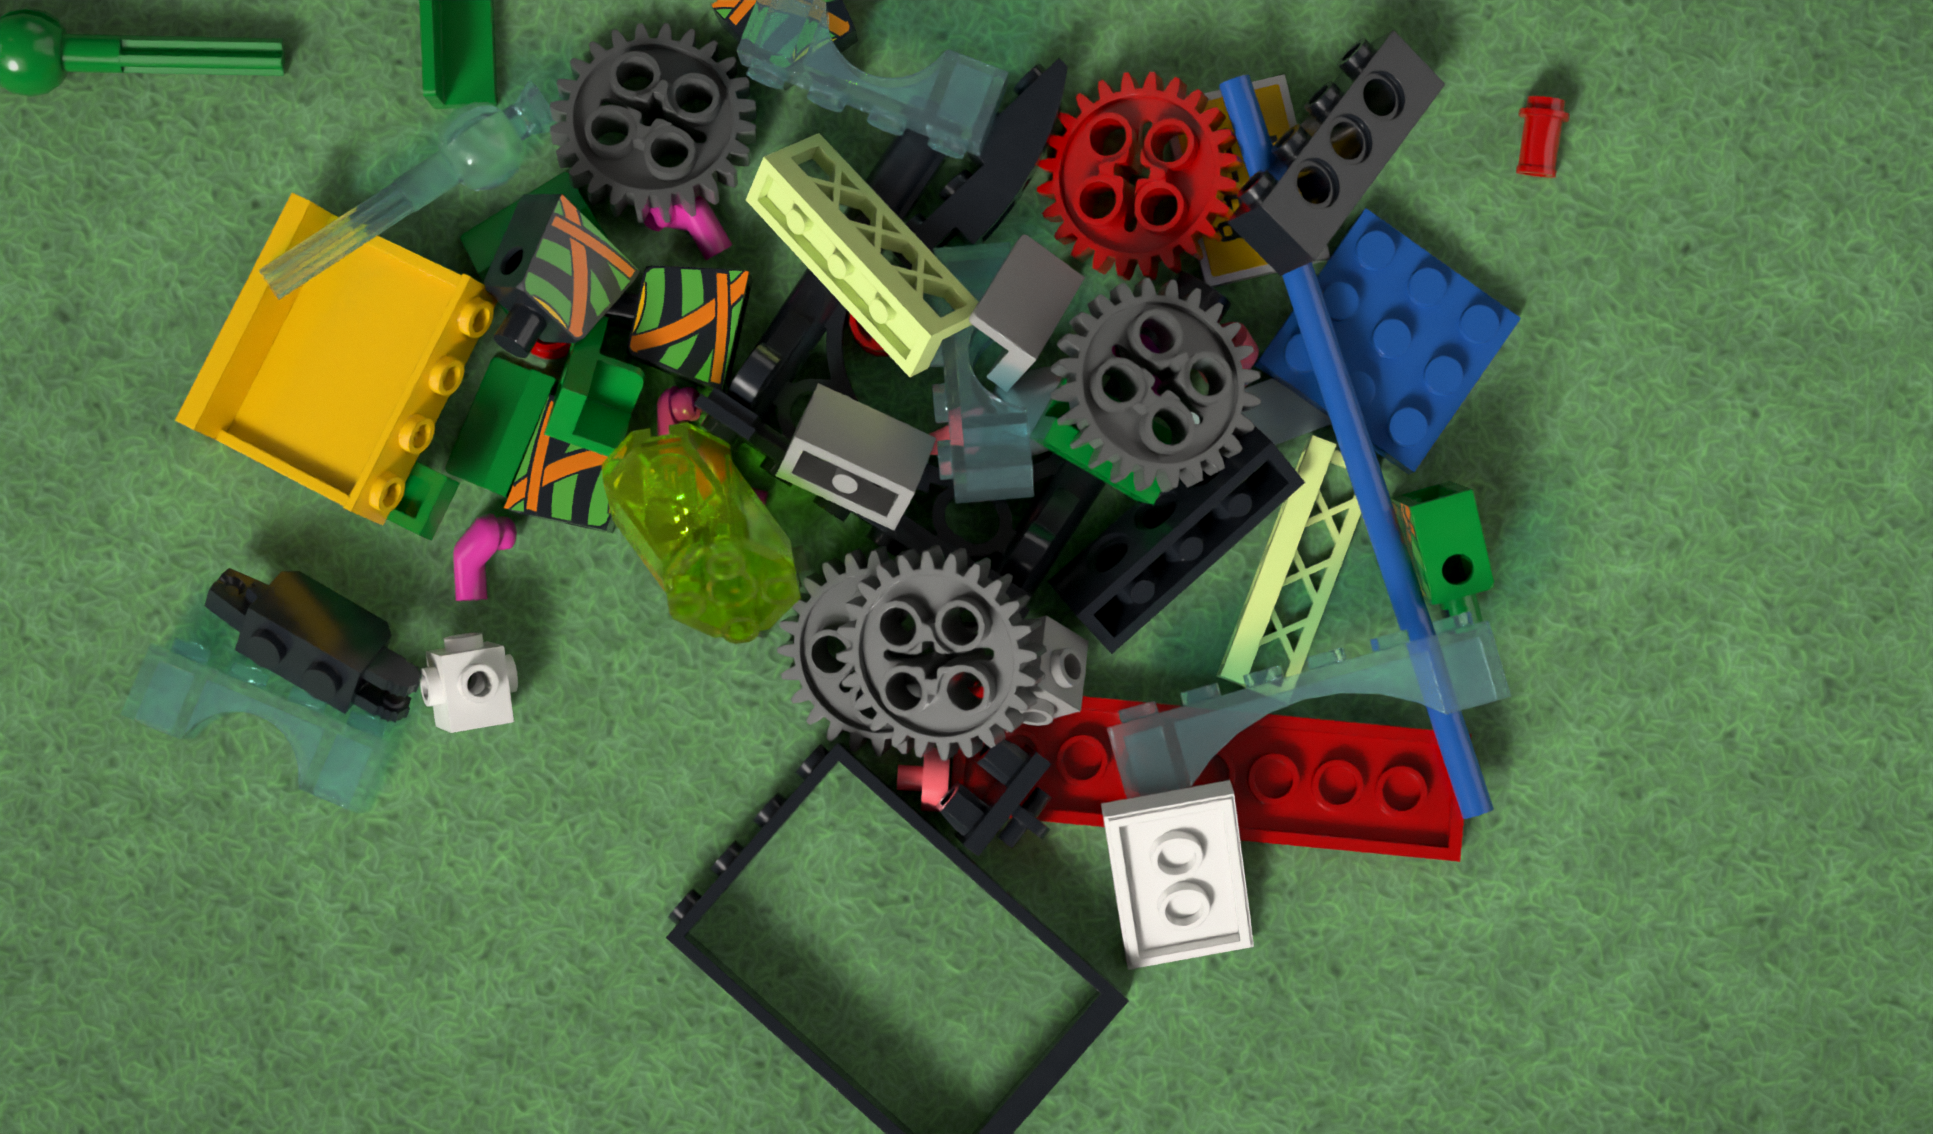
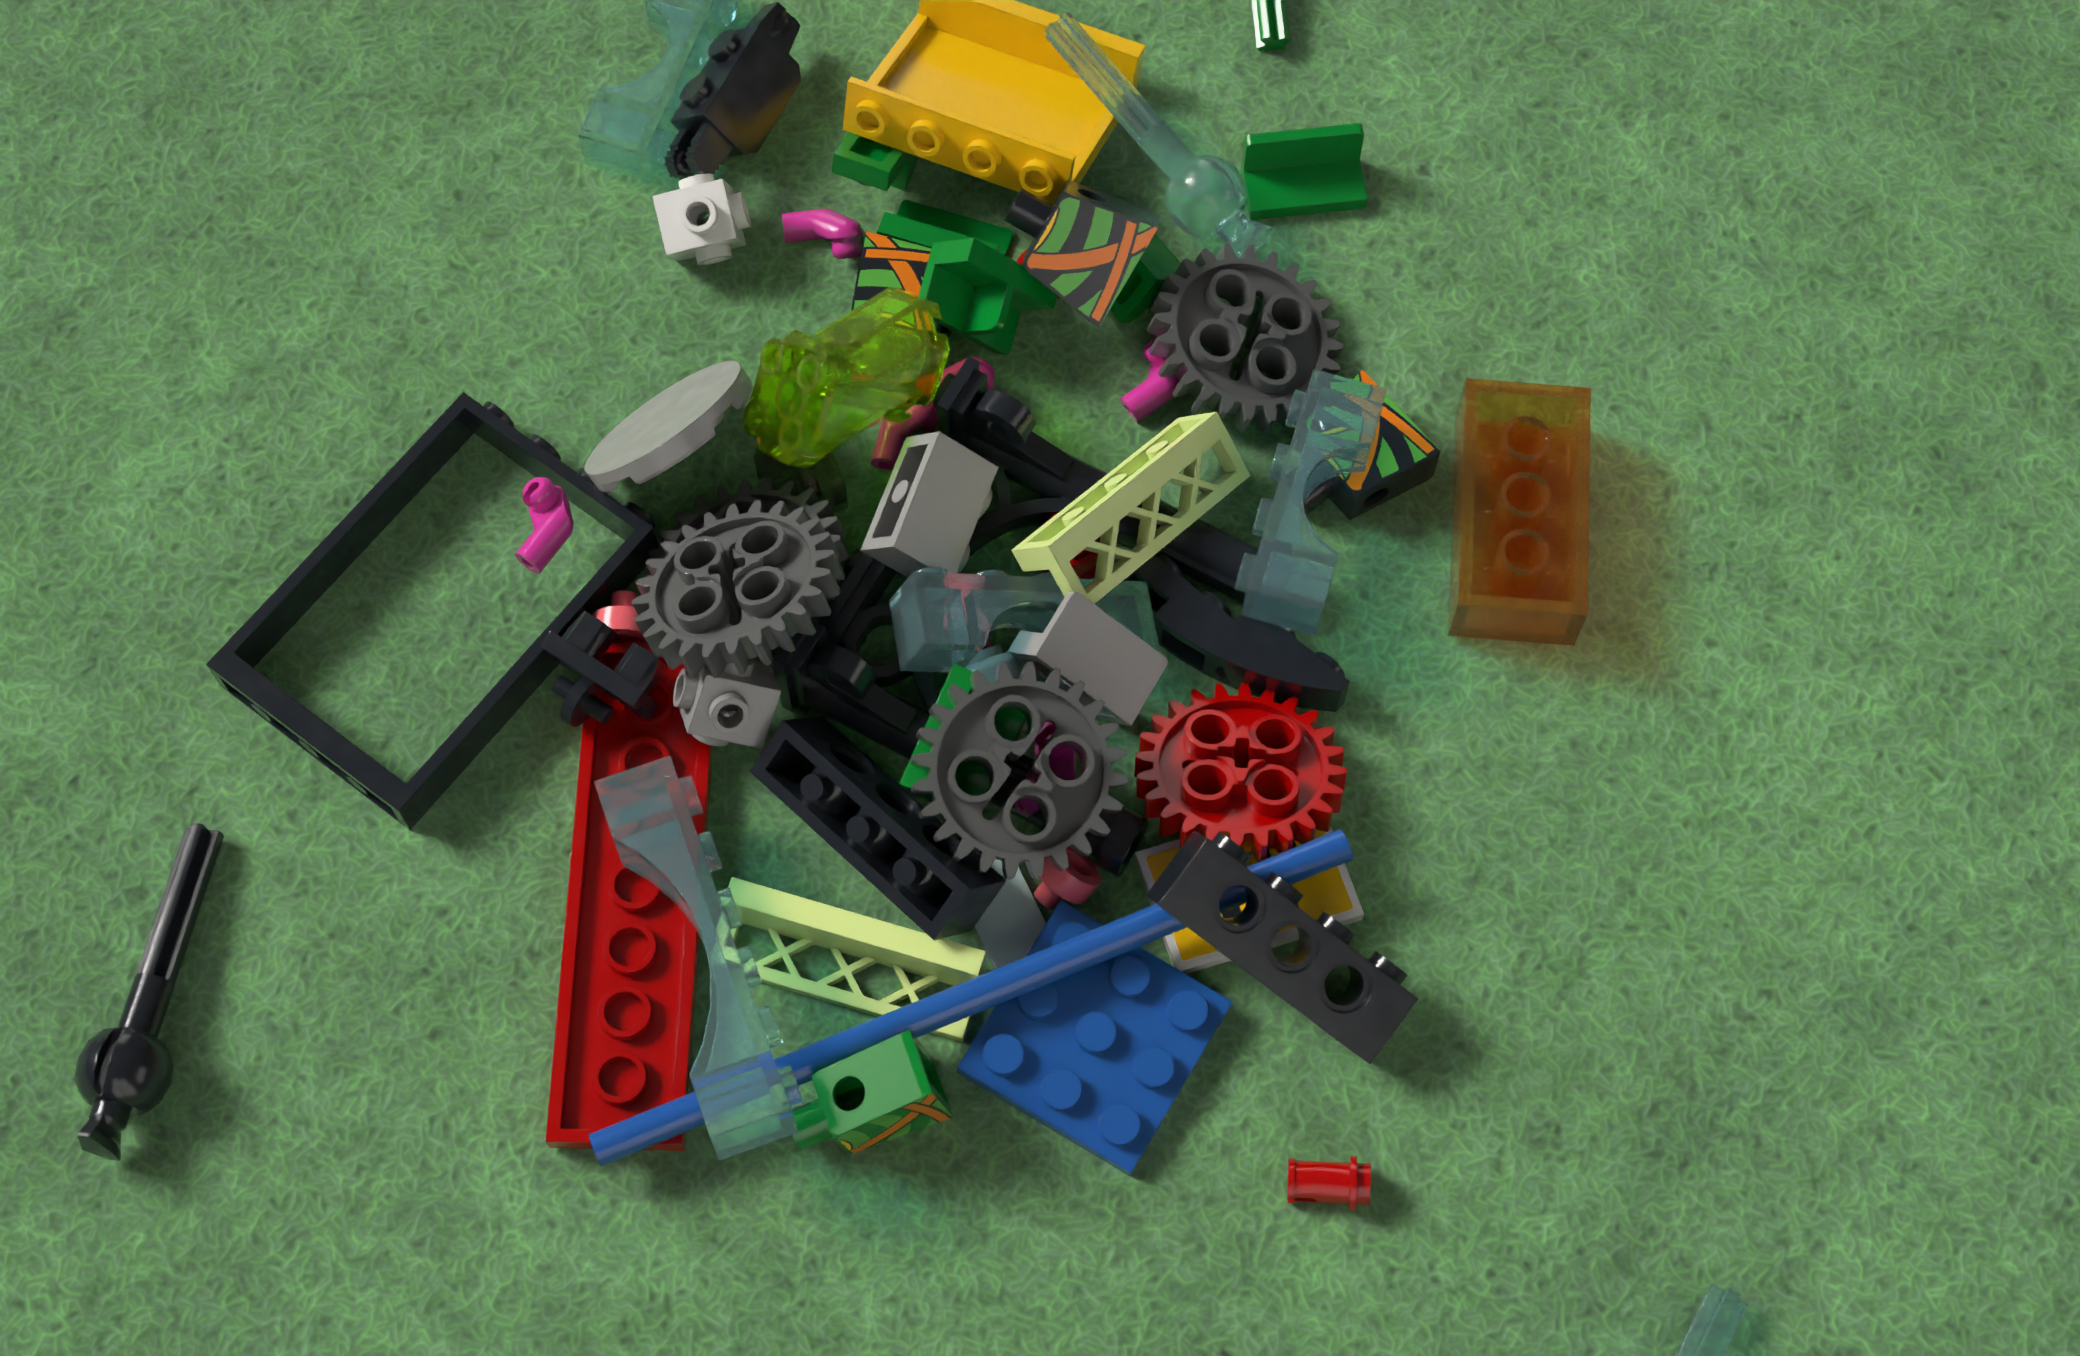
camera: 80 degrees right, 20 degrees down
(686, 321) = (1060, 376): torso -> none
(729, 722) = (668, 426): none -> light grey tile
(826, 846) = (551, 523): none -> dark pink arm
(1178, 874) = (526, 849): white tile -> none

